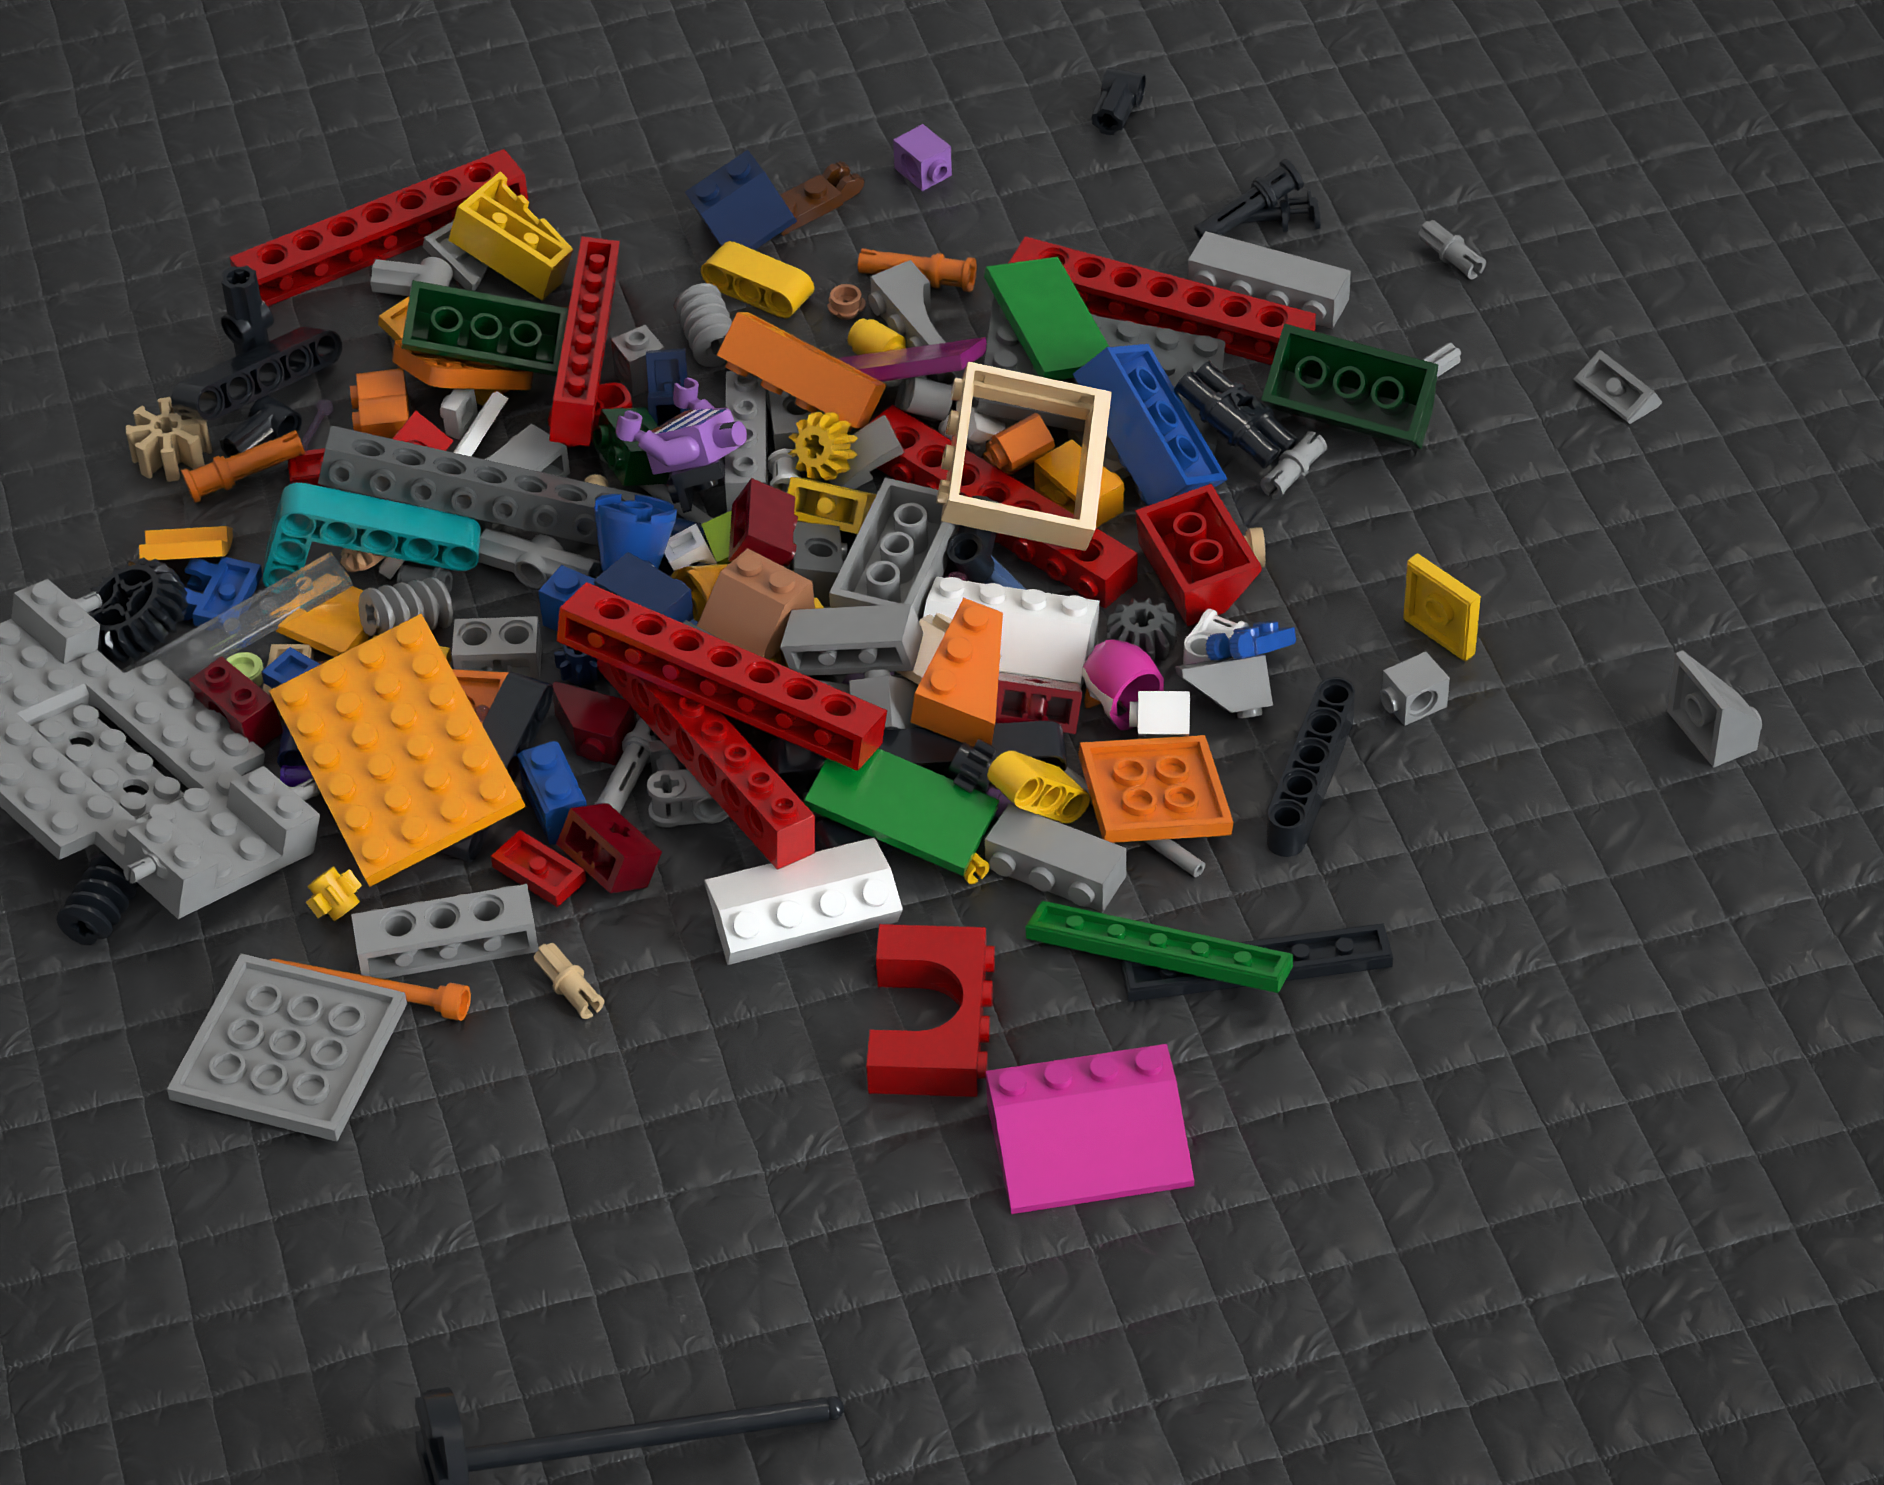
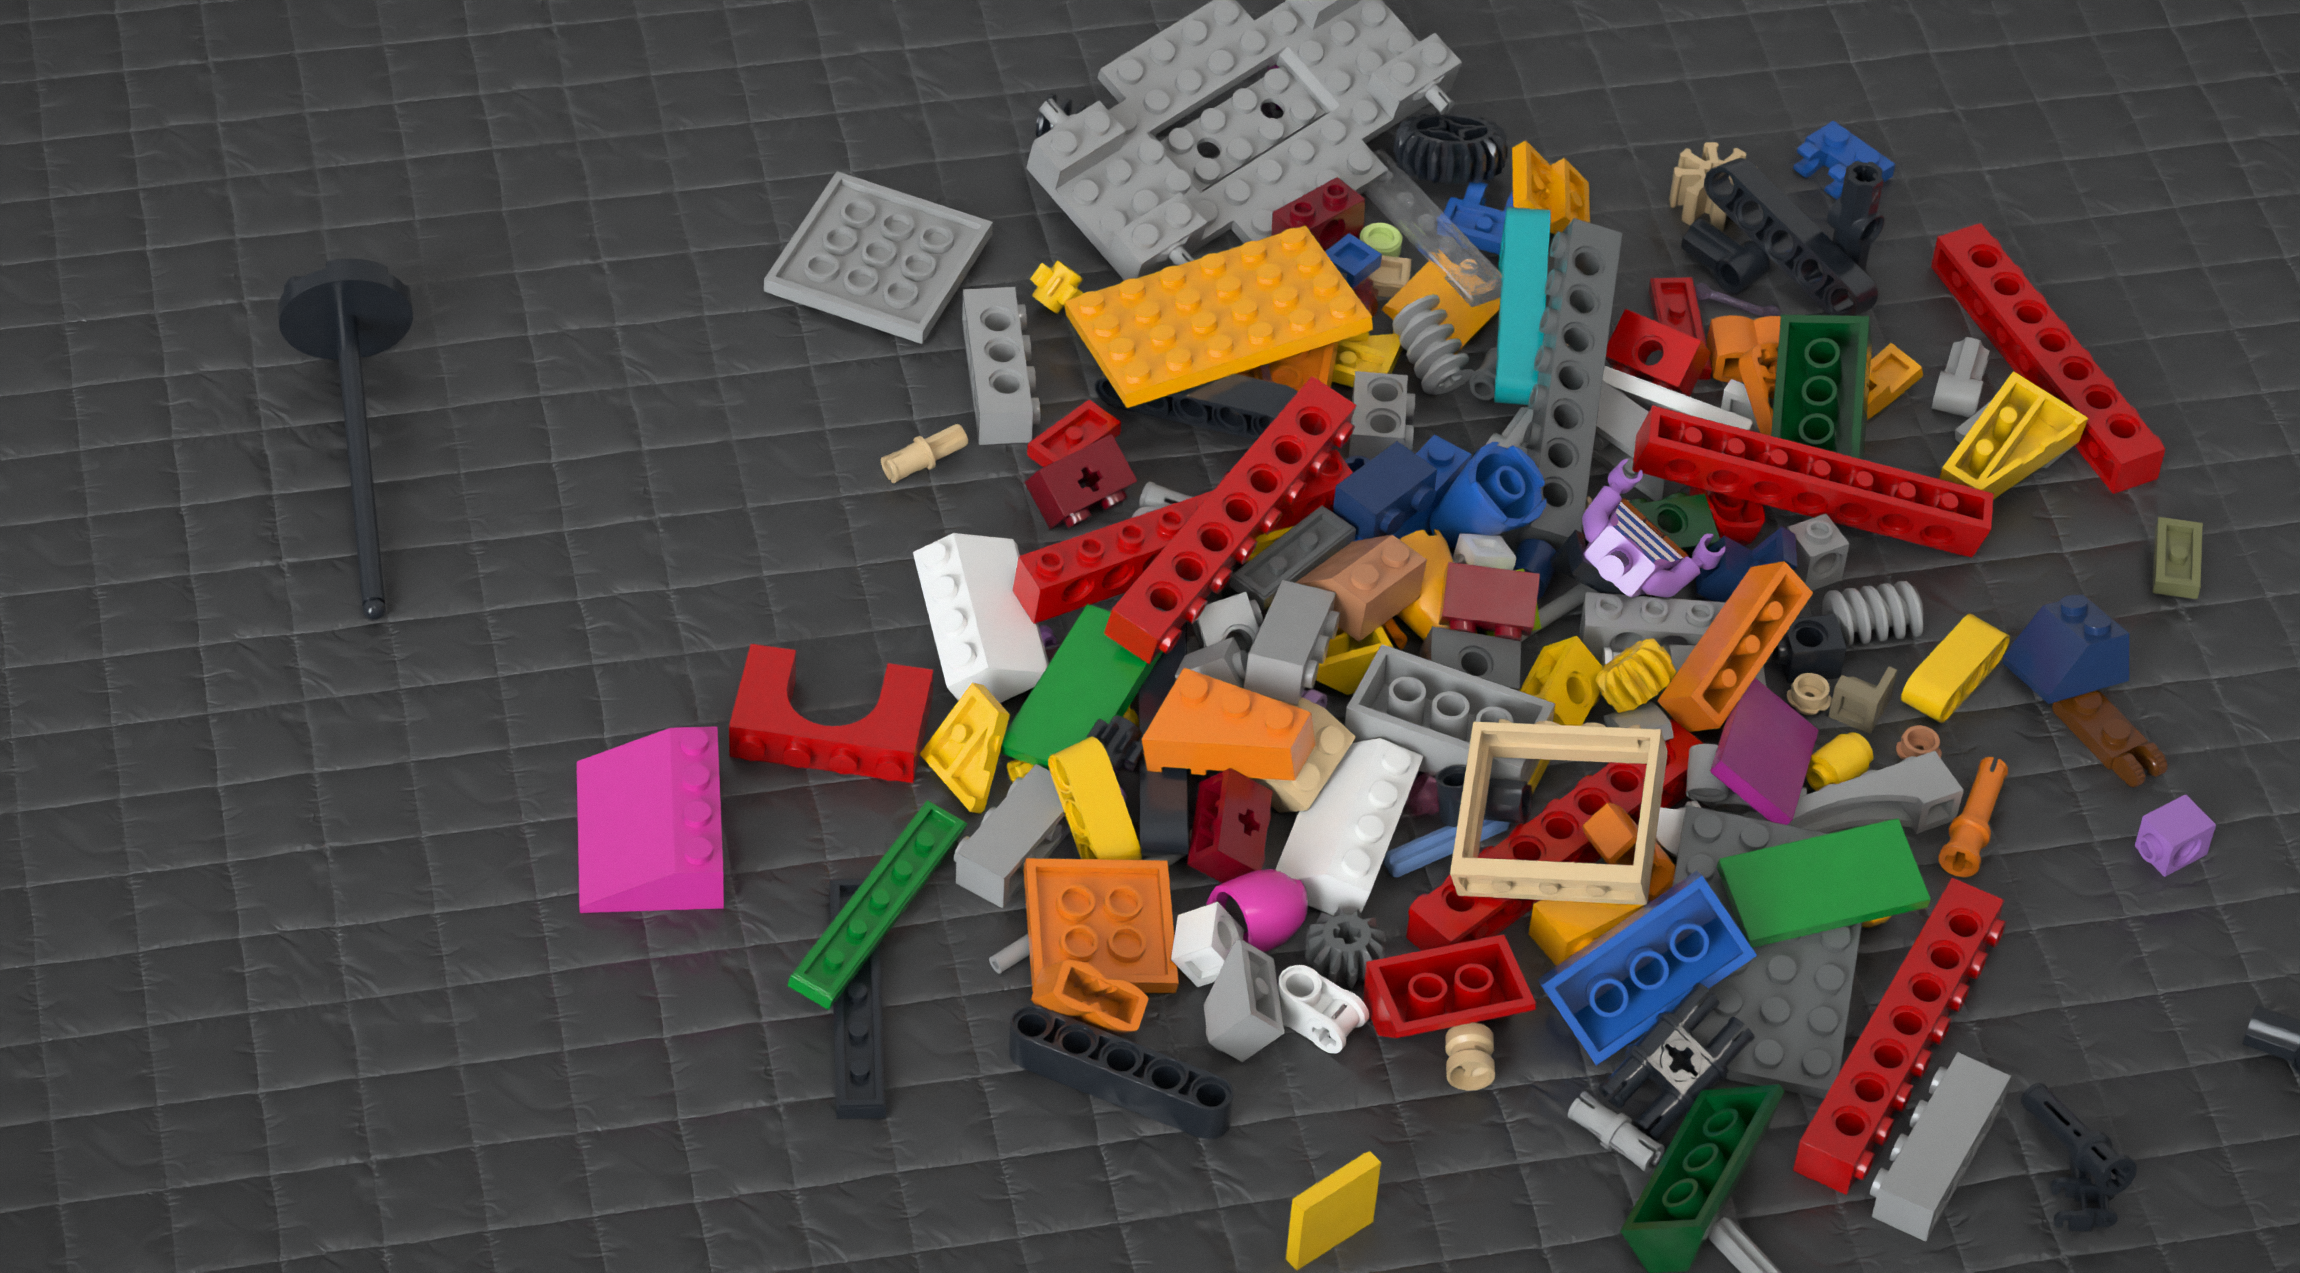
camera: 90 degrees right, 0 degrees up
(118, 359) = (1837, 150): none -> blue plate
(225, 471) = (1660, 226): orange pin -> none
(449, 1000) = (915, 368): orange piece -> none
(549, 786) = (1169, 447): blue brick -> none
(611, 157) = (2177, 558): none -> olive plate
(802, 322) = (1861, 702): none -> dark tan panel
(962, 892) = (969, 746): none -> yellow wing
(1250, 641) = (1293, 1021): blue hinge -> none
(1254, 777) = (1086, 996): none -> orange brick
(1414, 688) = (1226, 1184): light grey brick -> none

